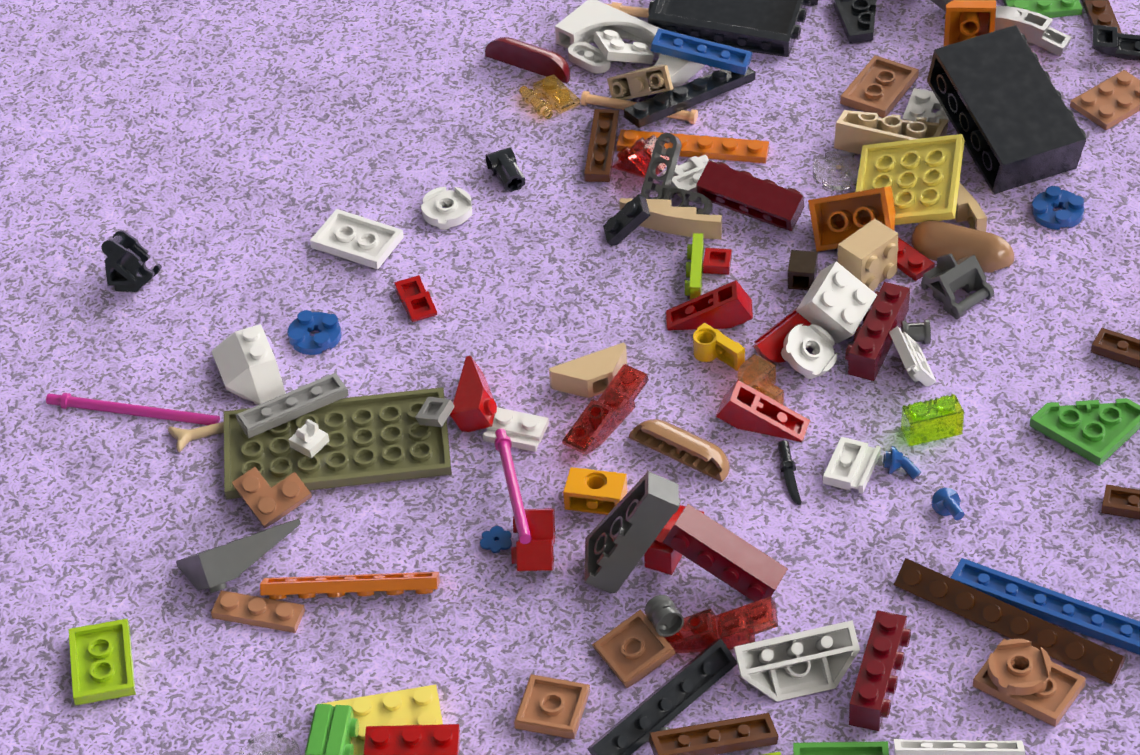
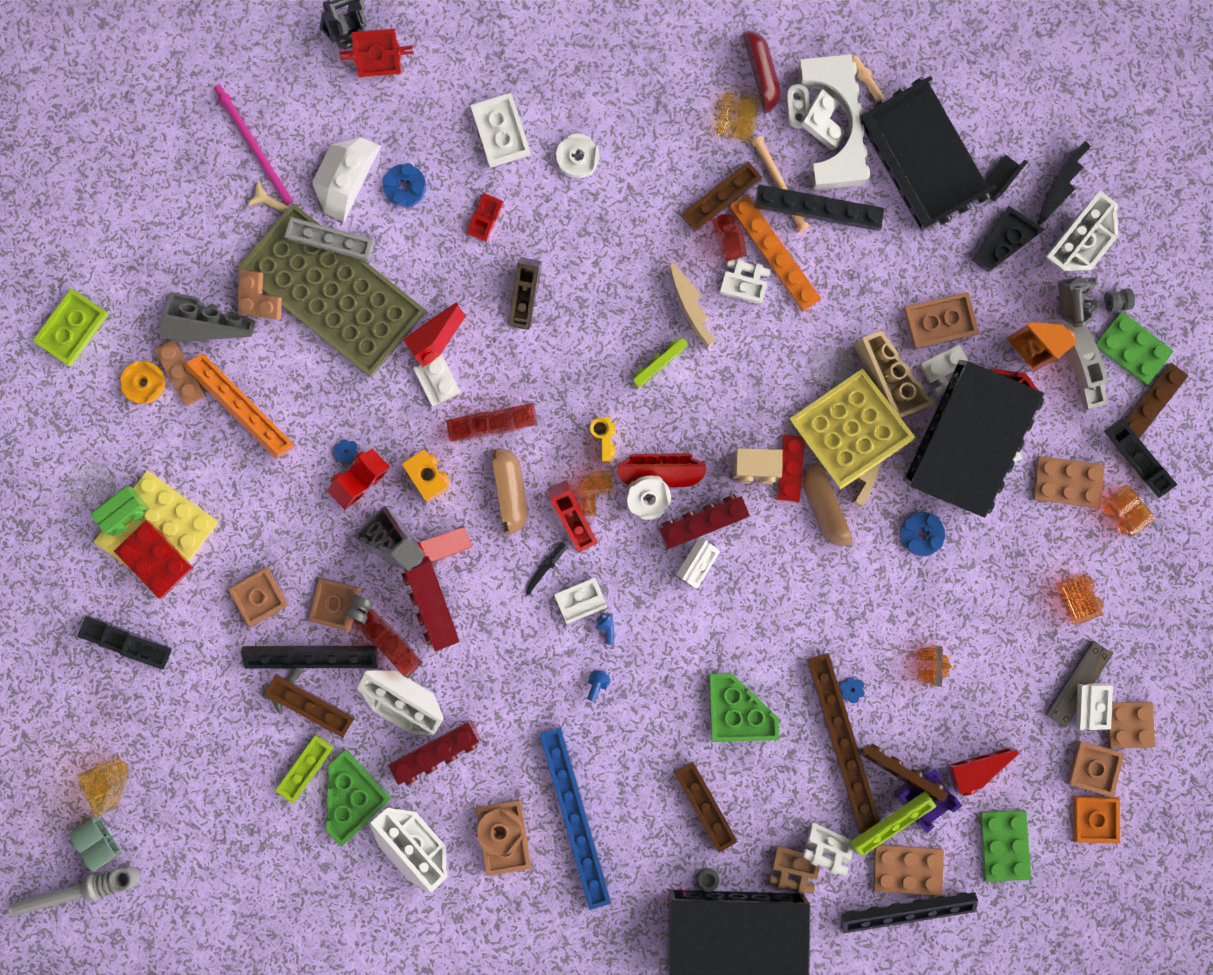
camera: 40 degrees right, 40 degrees up
(181, 266) = (376, 52): none -> red plate
(224, 633) = (132, 378): none -> light orange plate
(309, 439) = (312, 277): white tile -> none
(434, 412) = (394, 330): light grey plate -> none
(503, 445) = (410, 390): dark pink bar -> none
(505, 168) = (644, 157): black piece -> none
(517, 311) = (525, 292): none -> dark brown slope
(590, 373) = (517, 384): tan slope -> none
(626, 220) = (659, 283): black plate -> none
(640, 82) = (797, 170): tan slope -> none
(666, 191) = (710, 280): dark grey beam -> none
(701, 51) = (856, 183): blue plate -> none
(717, 261) = (680, 368): red plate -> none
(718, 308) = (631, 405): red slope -> none
(751, 195) = (750, 339): dark red brick -> none
(802, 269) = (718, 428): dark brown brick -> none
(836, 302) = (695, 484): white brick -> none
(842, 215) = (787, 422): orange slope -> none
(918, 331) = (727, 550): dark grey bush -> none
(932, 420) = (655, 619): clear neon green brick -> none
(953, 275) = (788, 526): dark grey piece -> none
(1010, 621) = (538, 791): reddish brown plate -> none

